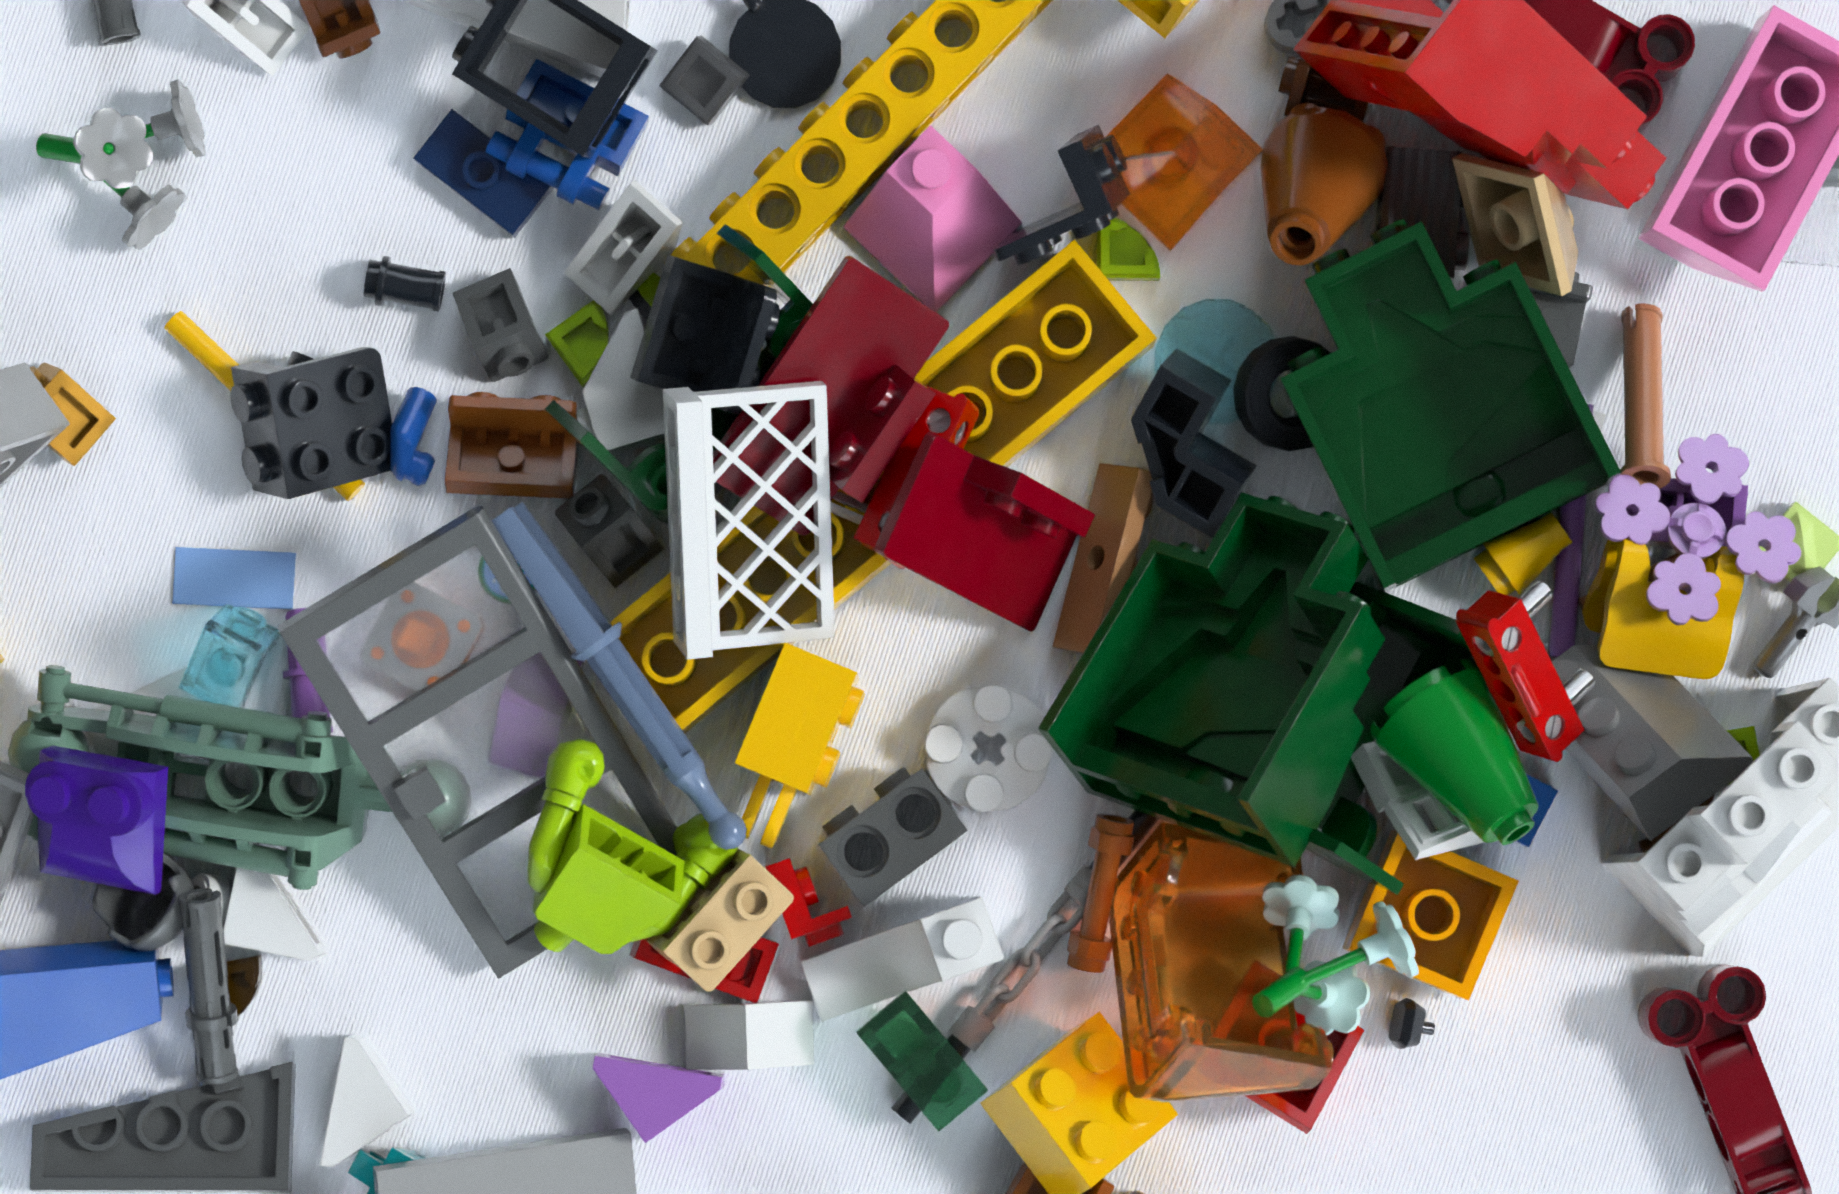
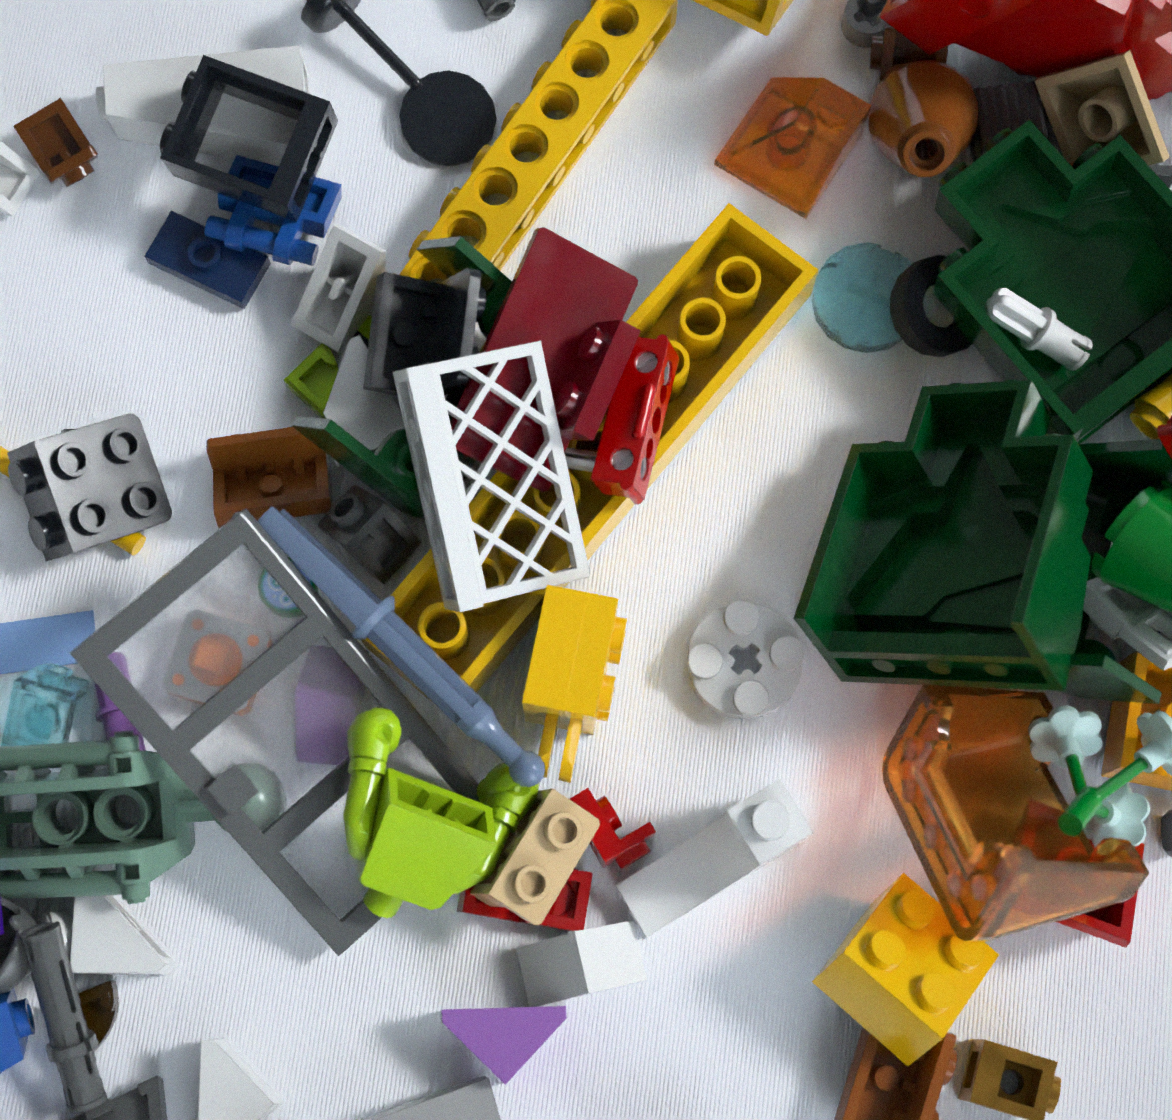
camera: 15 degrees left, 10 degrees down
(404, 284) = (153, 361): black pin -> none
(406, 434) = (174, 488): blue arm -> none
(500, 326) = (244, 380): dark grey bracket -> none
(704, 80) = (383, 150): flat silver tile -> none
(901, 849) = (686, 761): dark grey brick -> none
(922, 1060) = (749, 952): clear green slope -> none
(932, 220) = (606, 208): bright pink slope -> none
(974, 1026) = (787, 914): light grey piece -> none
(982, 531) = (705, 452): dark red bracket -> none
(1090, 947) = (876, 819): dark orange bar -> none
(1095, 171) = (737, 143): black bracket -> none
(1106, 554) = (809, 470): medium nougat tile -> none
(1125, 254) = (772, 219): lime tile -> none
(1188, 470) = (866, 382): black brick -> none
(1382, 453) = (1038, 328): none -> white axle

